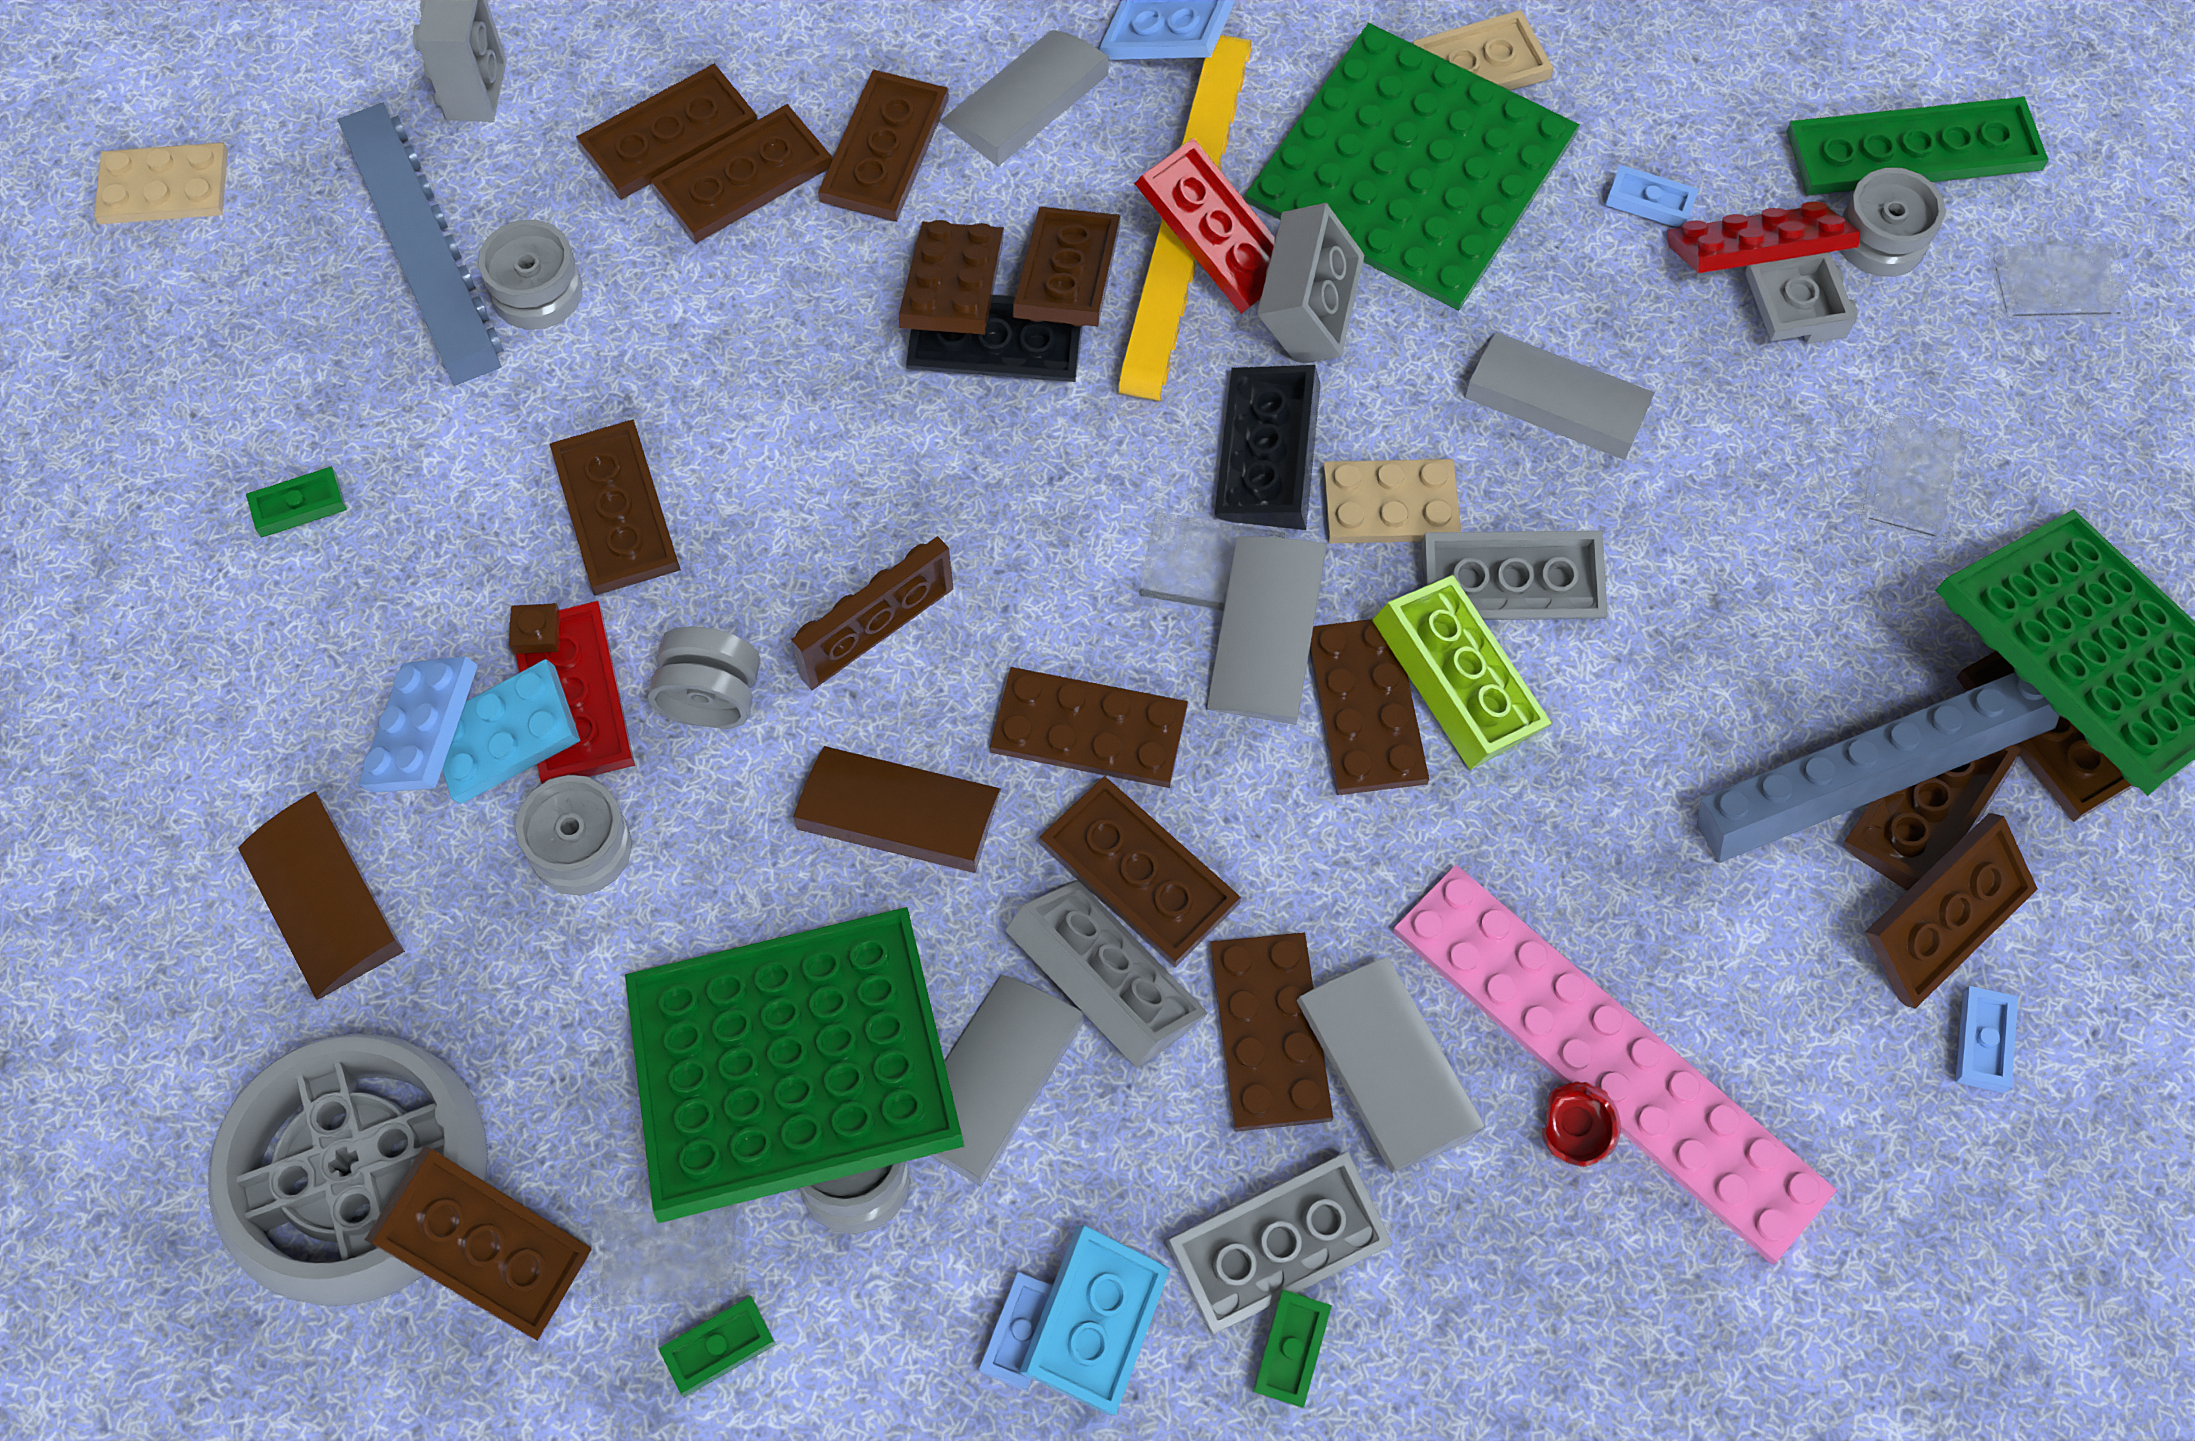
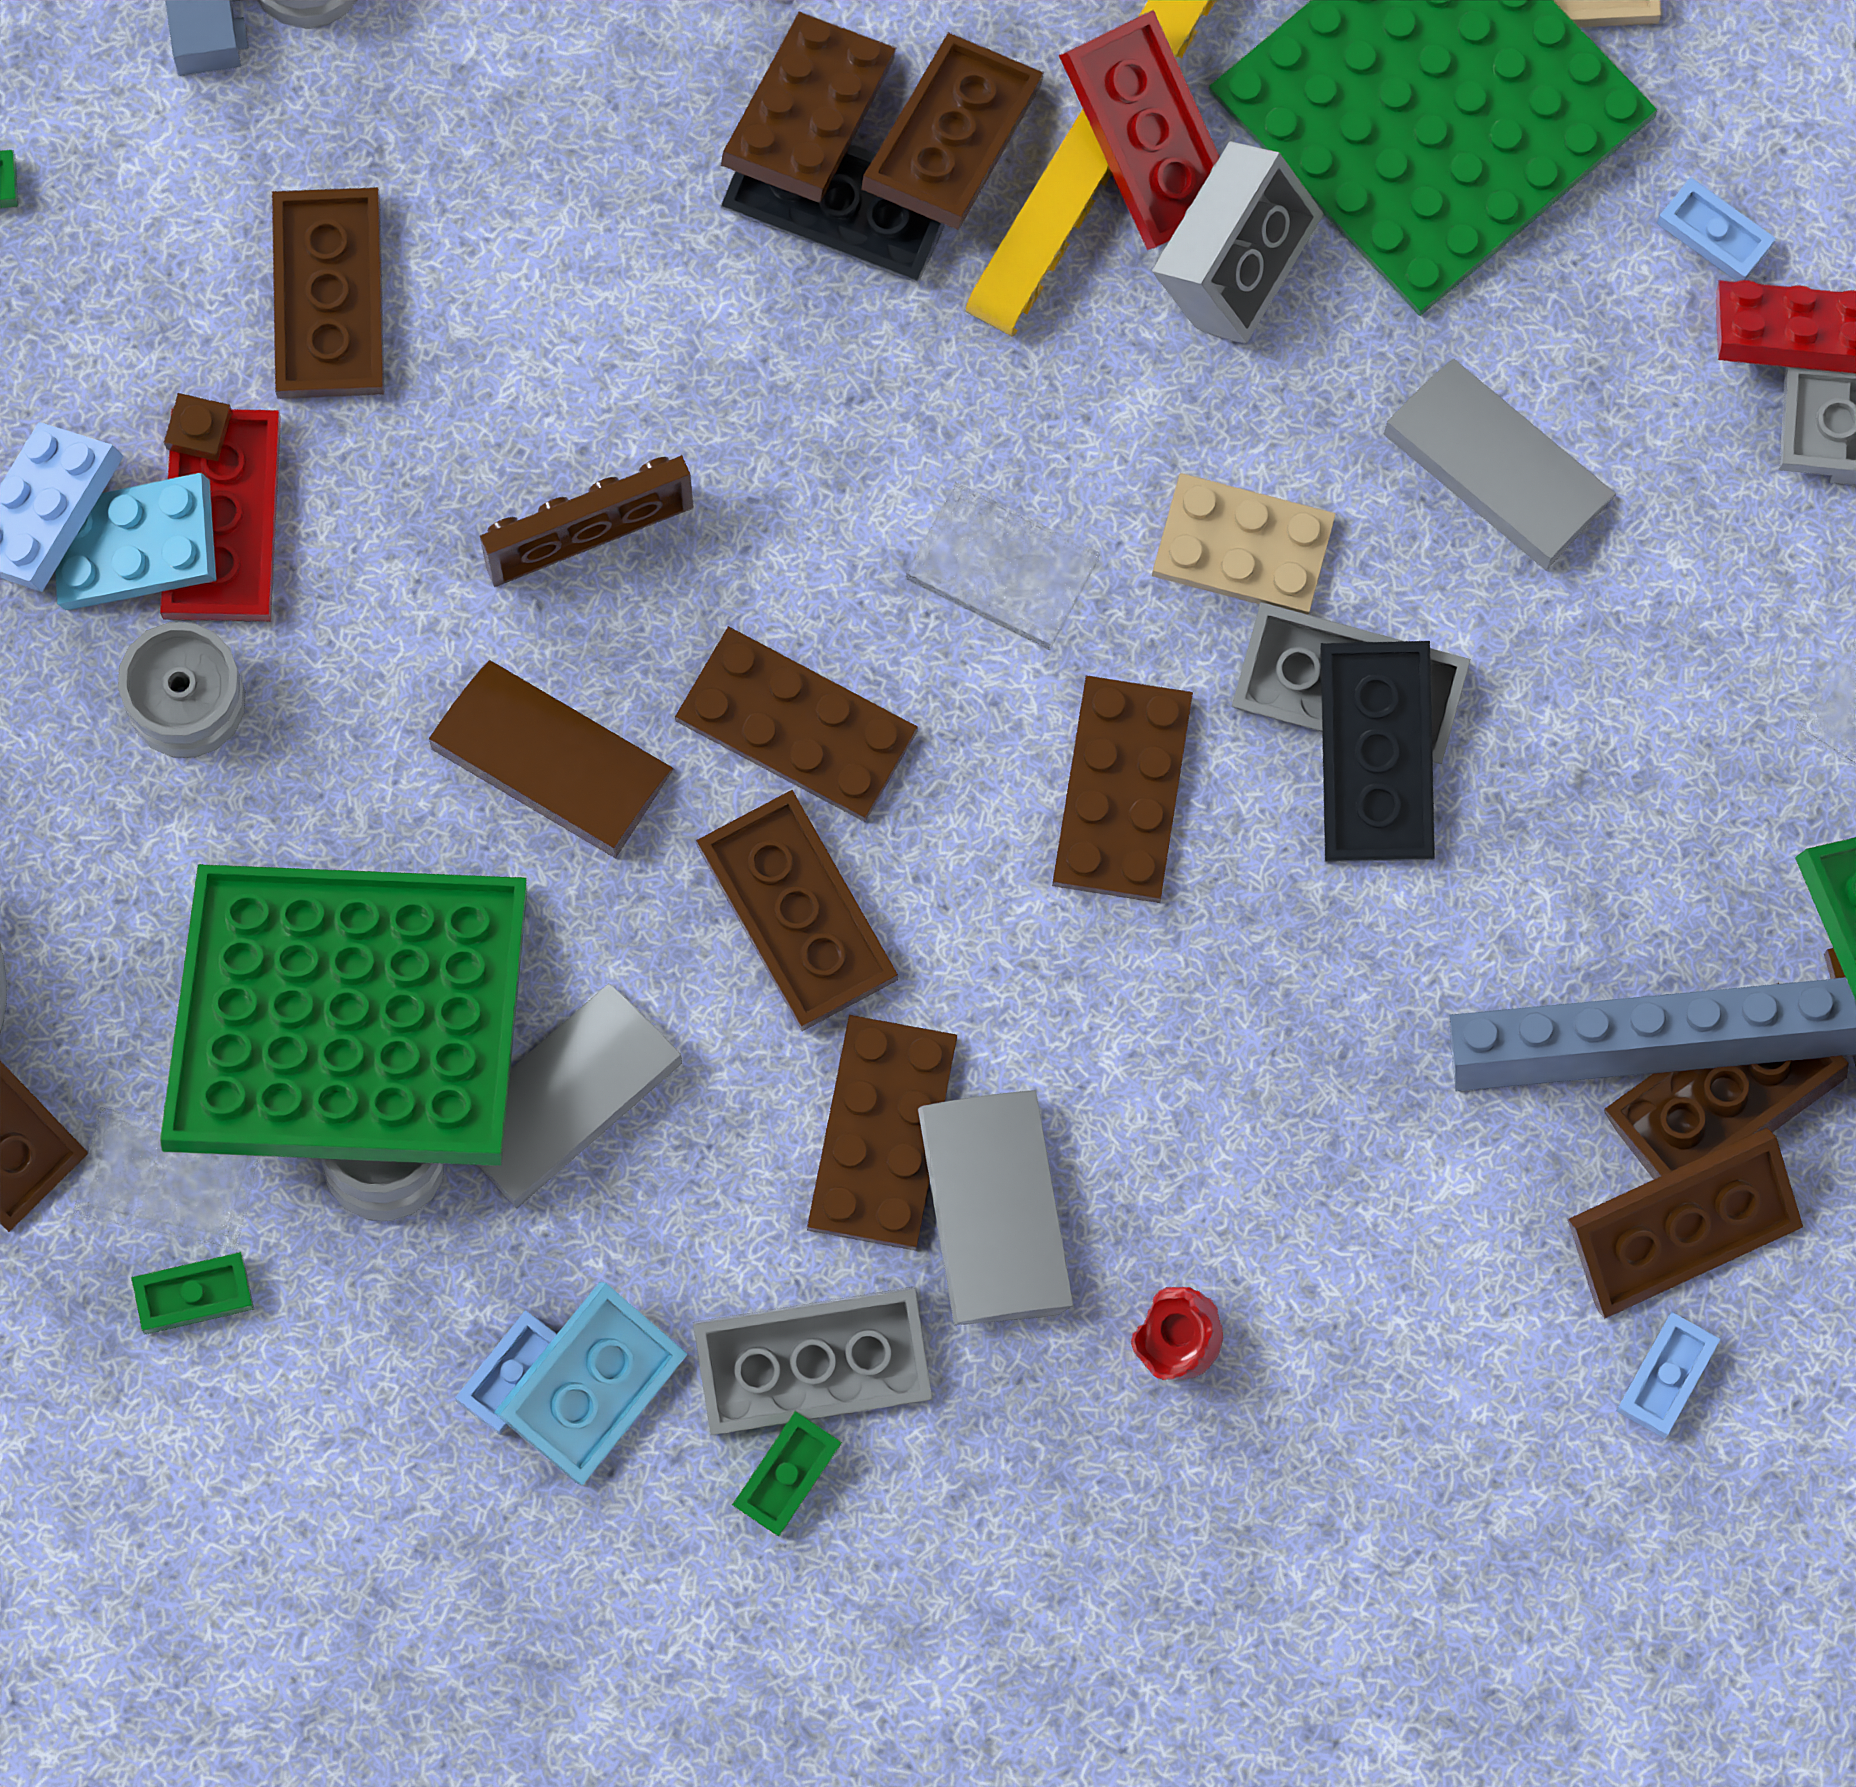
camera: 15 degrees right, 10 degrees up
(704, 677) = (373, 545): light grey wheel -> none
(1105, 972) = (721, 1014): light grey slope -> none
(1267, 628) = (1036, 667): light grey slope -> none
(1268, 446) = (1122, 432): black slope -> none
(1460, 671) = (1243, 781): lime slope -> none
(1556, 619) = (1377, 751): none -> black tile
(1591, 1038) = (1240, 1257): bright pink plate -> none

